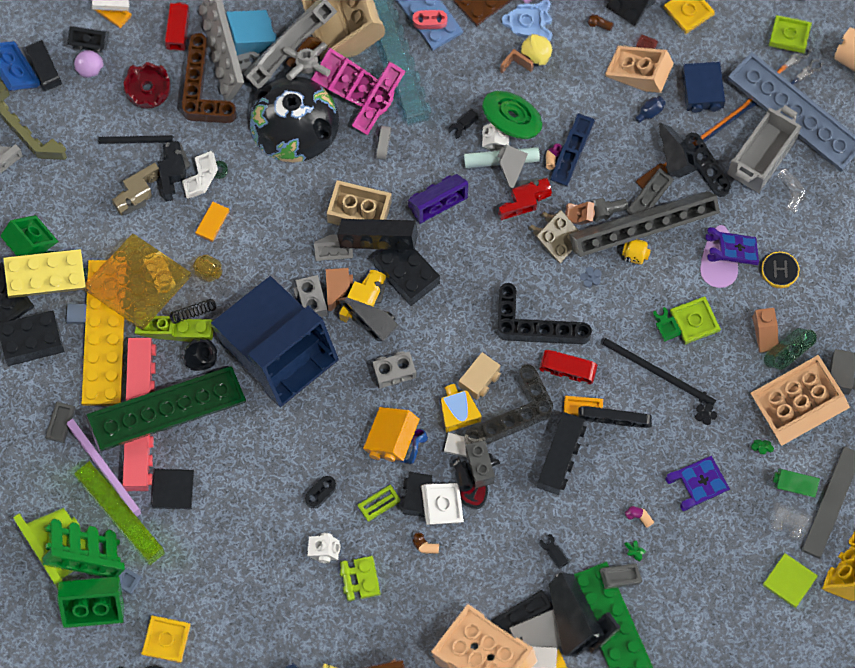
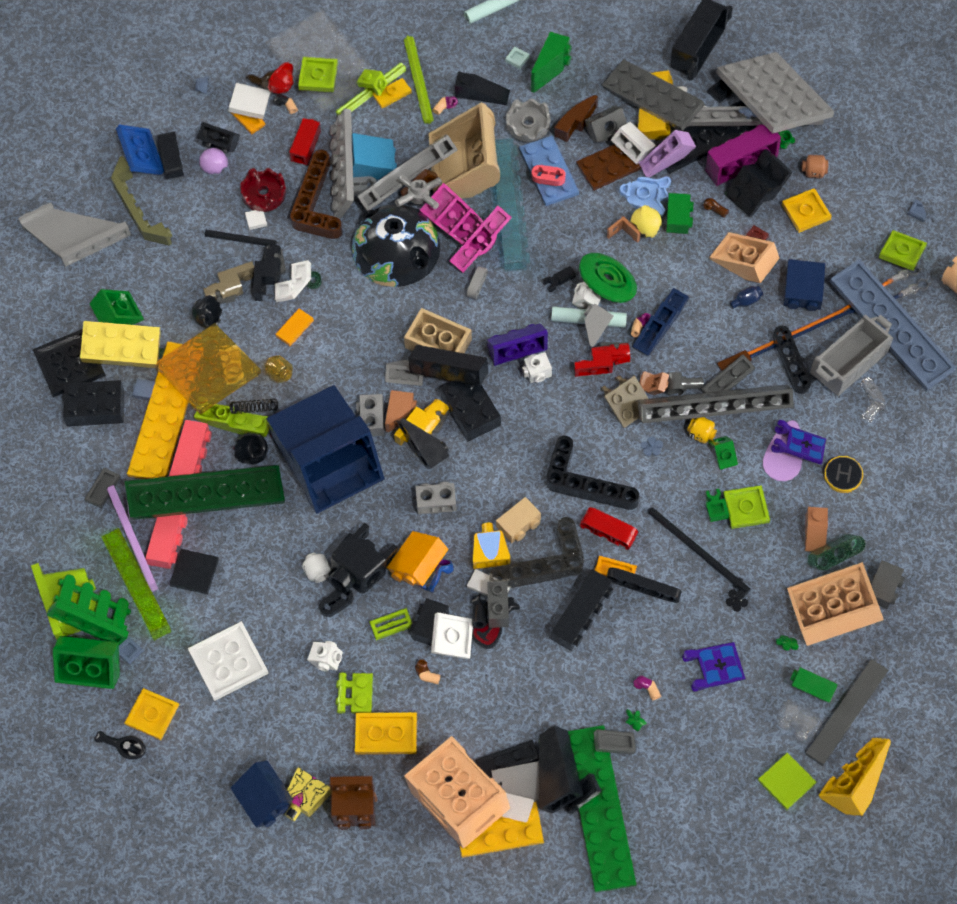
camera: 15 degrees right, 5 degrees down
(122, 223) = (206, 311): none -> black hair
(146, 117) = (255, 219): none -> white tile
(228, 571) = (228, 661): none -> white plate
(293, 461) = (316, 567): none -> white head
(334, 449) = (358, 563): none -> black piece
(400, 612) = (386, 733): none -> yellow plate
(463, 219) = (537, 368): none -> white brick
(555, 552) = (554, 706): black bar -> none
(566, 35) = (679, 213): none -> green brick
(662, 268) = (724, 452): none -> green bracket
(678, 155) = (763, 343): black slope -> none

